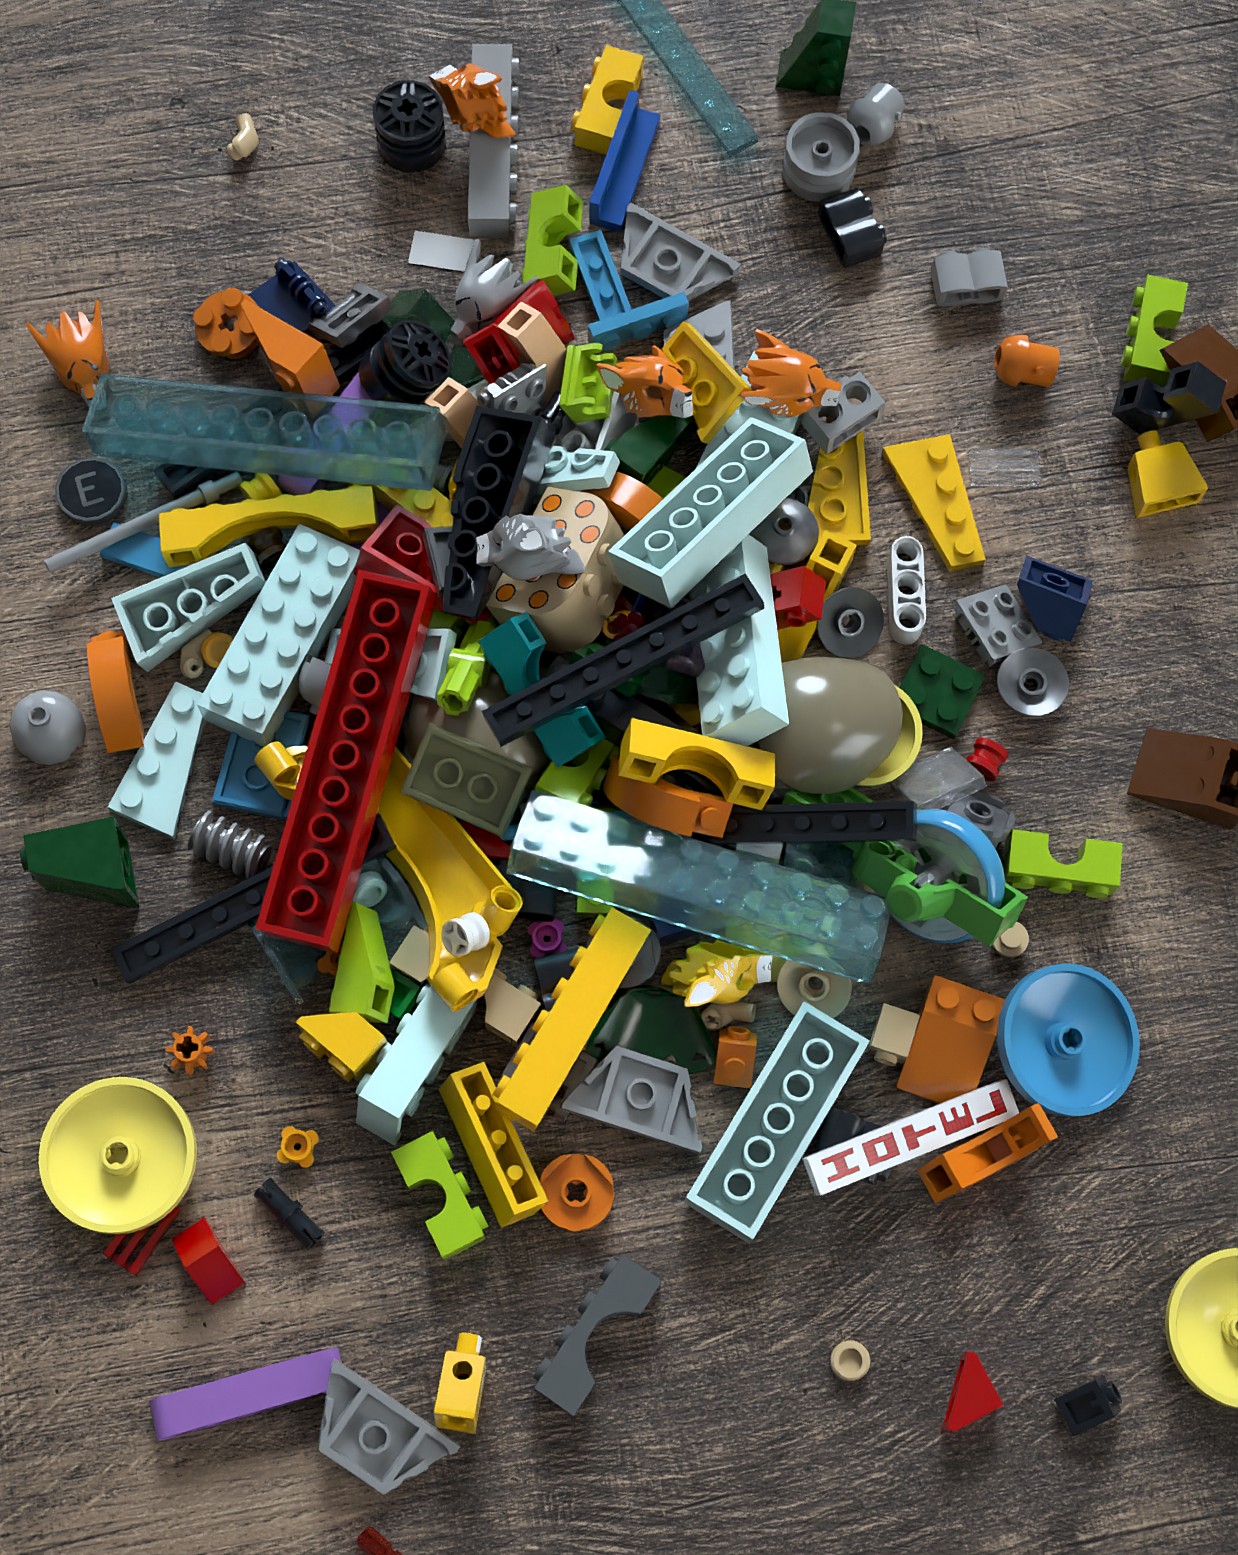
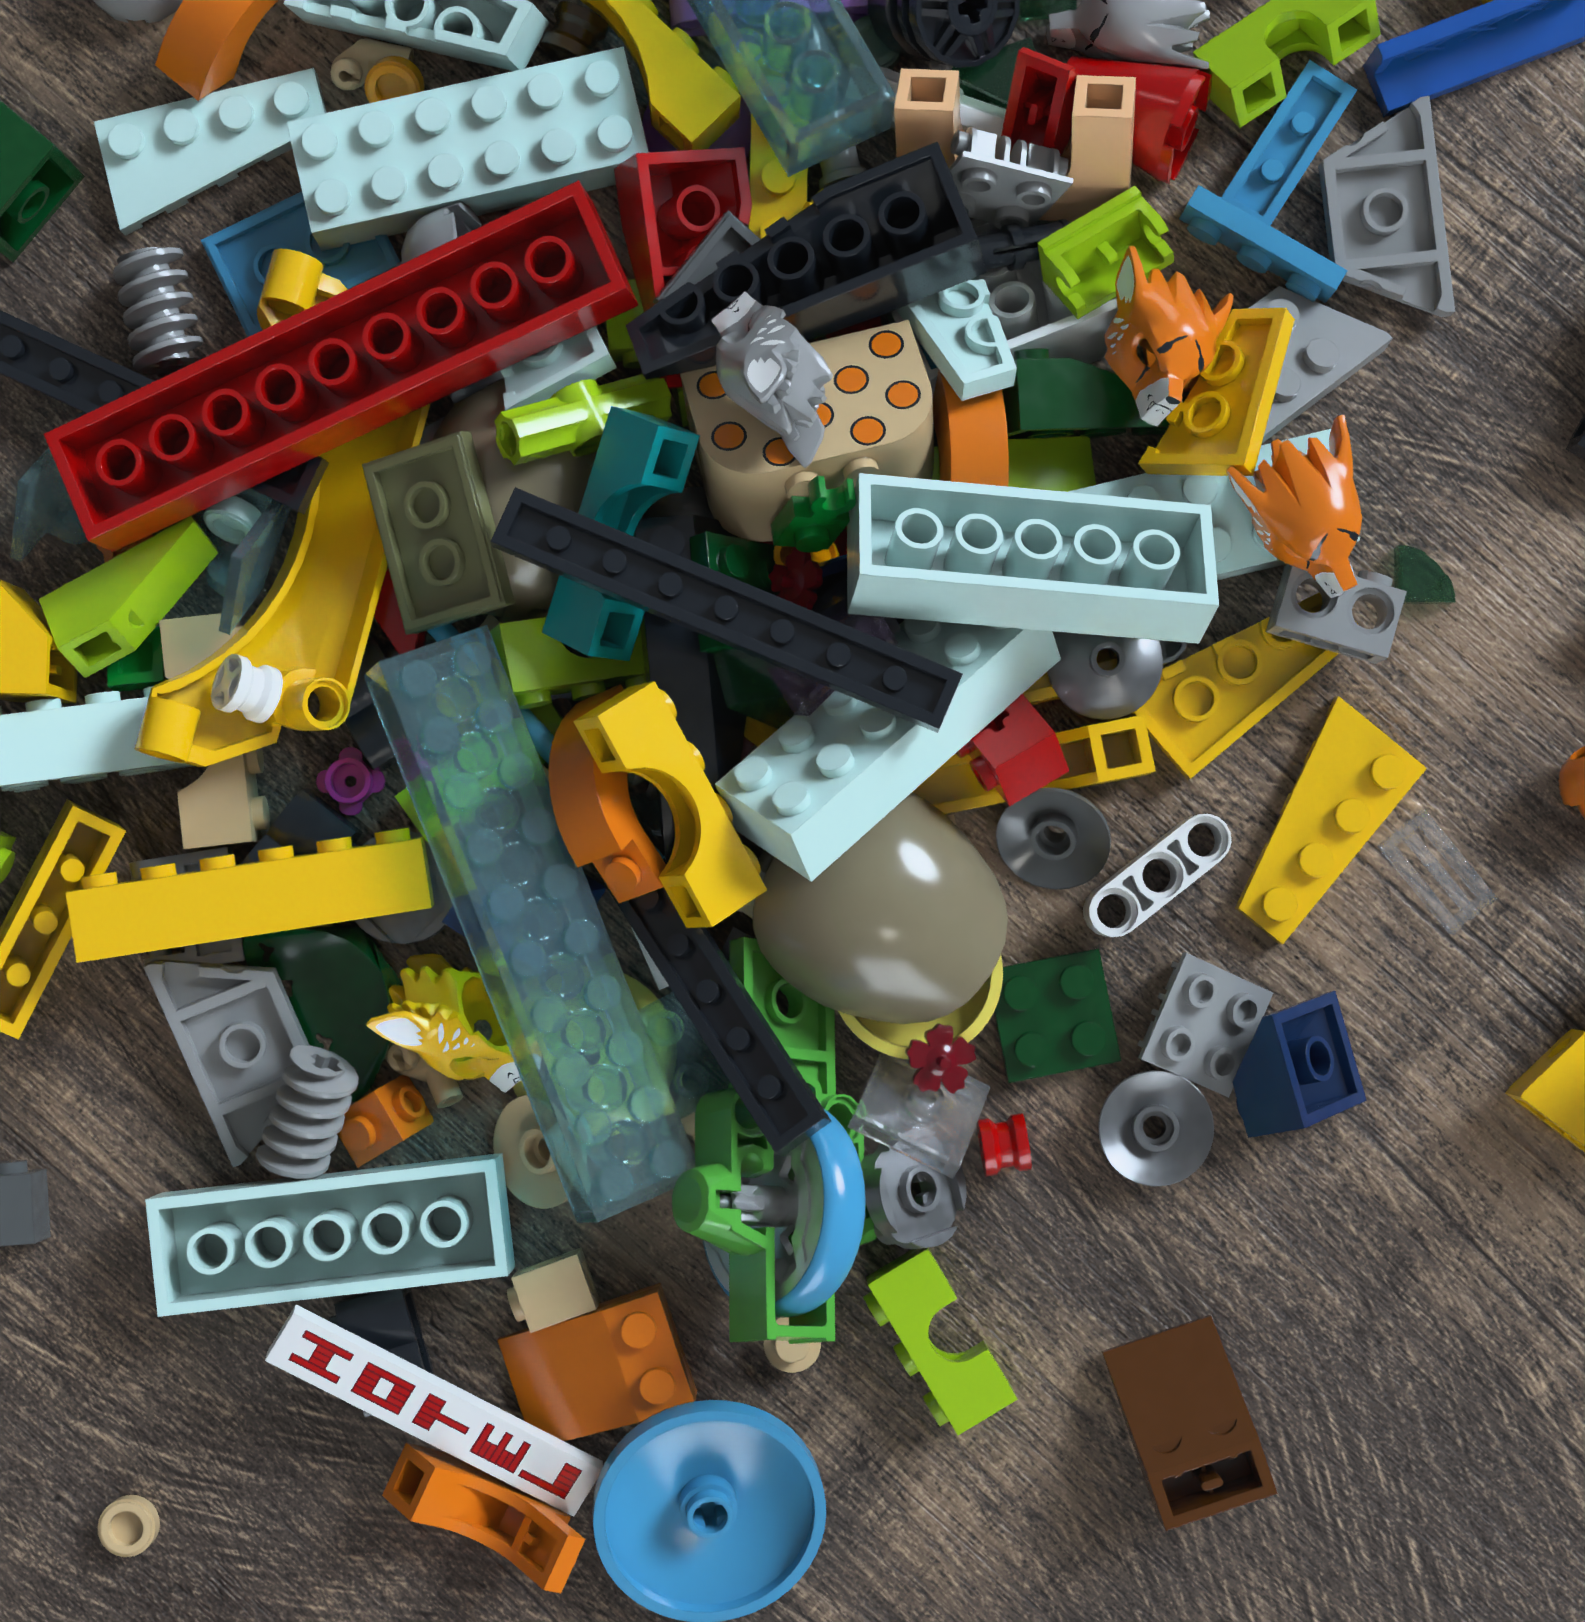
camera: 55 degrees right, 15 degrees up
(598, 1195) = (45, 1077): orange plate -> none
(610, 597) = (814, 520): none -> green plate
(706, 1081) = (308, 1113): none -> light grey piece
(850, 368) = (1421, 577): none -> clear green tile
(920, 752) = (940, 1059): none -> dark red plant

